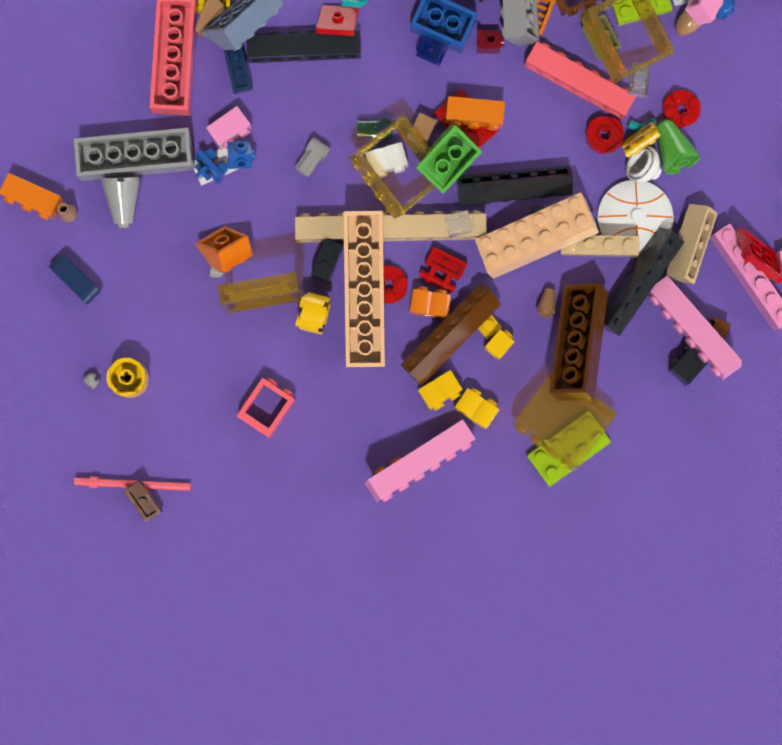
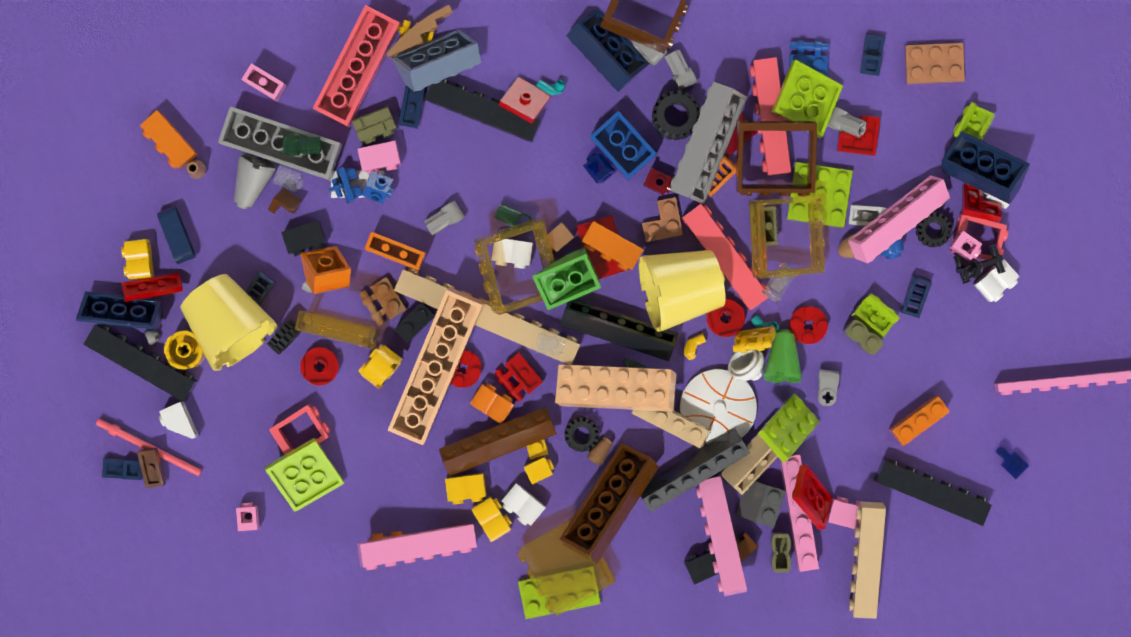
camera: 25 degrees right, 5 degrees up
(49, 316) = (138, 259): none -> yellow brick
(52, 368) = (113, 310): none -> dark blue slope
(72, 334) = (152, 287): none -> red plate
(91, 408) = (140, 362): none -> black brick
(95, 106) = (264, 82): none -> bright pink brick
(116, 515) = (121, 469): none -> dark blue slope
(148, 445) = (178, 420): none -> white slope
(149, 145) = (295, 145): none -> clear green piece
(154, 332) = (226, 321): none -> light yellow cone
(155, 183) = (288, 179): none -> clear brick
(161, 203) = (286, 200): none -> reddish brown panel
(169, 281) = (255, 282): none -> dark blue slope
(192, 229) = (304, 237): none -> black brick
(212, 102) = (375, 125): none -> olive brick
(214, 325) = (283, 337): none -> black tyre
(258, 512) = (247, 524): none -> bright pink brick
(263, 330) = (311, 373): none -> red plate
(280, 204) = (395, 251): none -> orange brick
(287, 443) = (304, 474): none -> lime plate
(291, 251) = (388, 299): none -> medium nougat plate
(499, 382) = (523, 504): none -> white brick
(515, 75) = (669, 222): none -> nougat plate
(523, 284) = (593, 434): none -> black tyre
(552, 119) = (681, 286): none -> light yellow cone
(585, 173) = (691, 345): none -> yellow arm
(709, 202) = (788, 427): none -> lime plate
(715, 285) = (761, 503): none -> dark grey slope
(724, 152) = (828, 382): none -> light grey piece
(737, 73) = (875, 315): none -> lime bracket
(738, 98) = (859, 333): none -> olive brick
(751, 316) = (780, 545): none -> olive brick
(771, 41) = (909, 294): none -> dark blue slope

